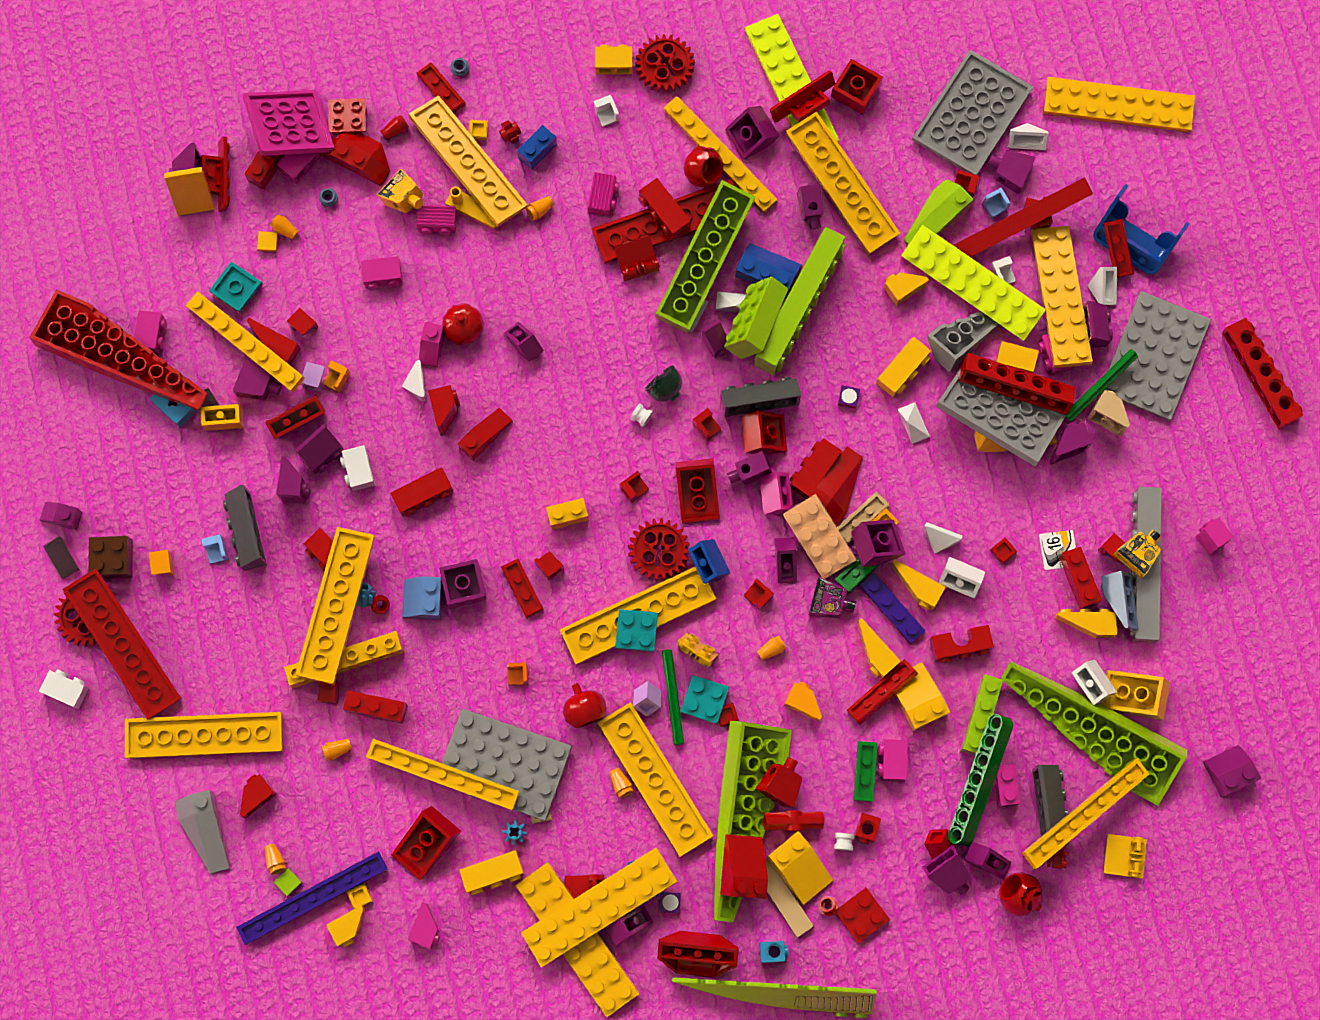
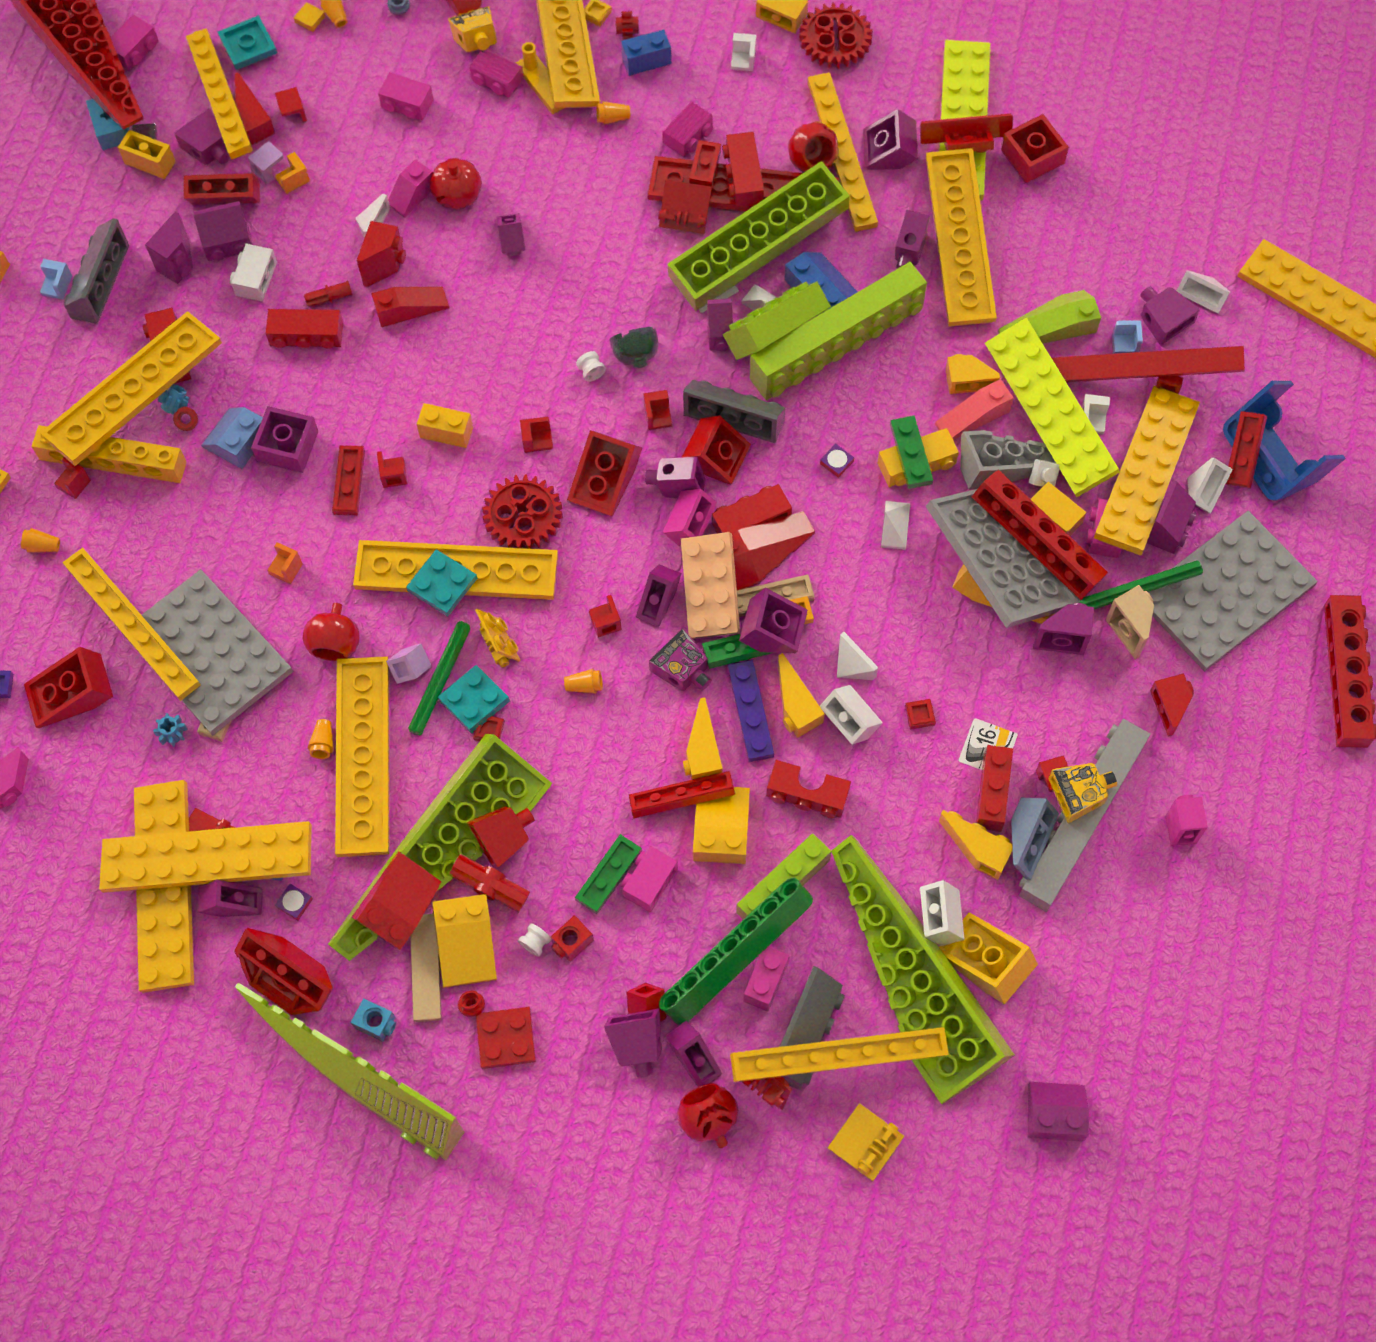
camera: 30 degrees right, 10 degrees down
(375, 707) = (109, 518): red brick -> none
(421, 456) = (328, 294): none -> red axle
(492, 872) = (117, 759): yellow brick -> none
(633, 218) = (705, 163): none -> red plate
(709, 561) = (569, 550): blue brick -> none
(803, 701) = (583, 756): light orange slope -> none
(900, 368) = (911, 452): none -> green plate
(923, 311) = (977, 410): none -> coral slope
(967, 181) = (1108, 303): red panel -> none
(972, 113) = (1153, 236): light grey plate -> none
(994, 335) = (1044, 472): none -> white plate
(1162, 455) = (1172, 699): none -> red slope

